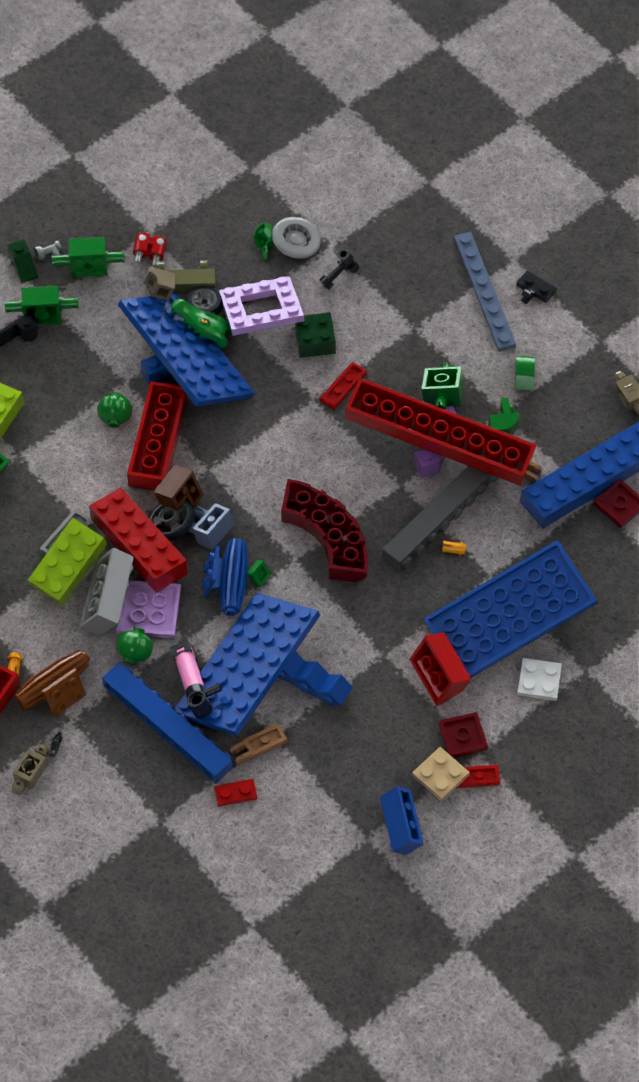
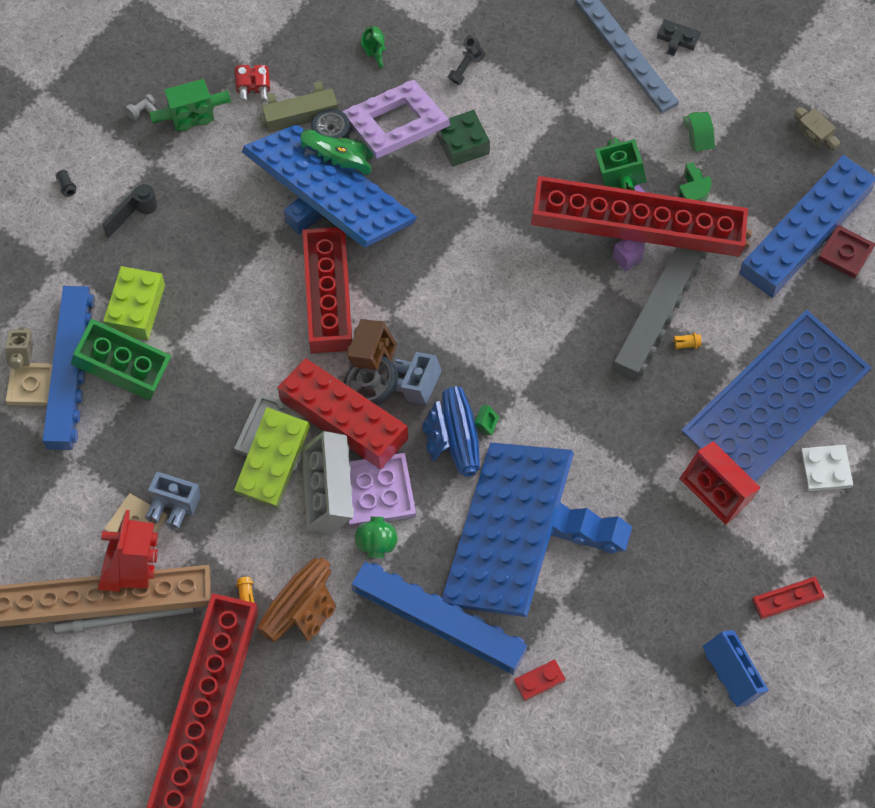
camera: 15 degrees left, 5 degrees up
(22, 260) = (116, 124): dark green slope -> none
(30, 759) = (307, 696): dark tan piece -> none
(43, 304) = (154, 168): green brick -> none
(55, 744) = (320, 667): black piece -> none
(114, 409) = (269, 270): green plant -> none
(160, 283) = (280, 117): dark tan brick -> none
(192, 682) = (455, 563): piece -> none
(259, 743) = (549, 616): medium nougat hinge -> none
(294, 242) = (407, 40): light grey wheel -> none
(331, 526) = (551, 350): dark red brick -> none
(343, 386) = (509, 187): red tile -> none
(440, 774) = (758, 603): tan plate -> none
(463, 735) = (767, 552): dark red plate -> none

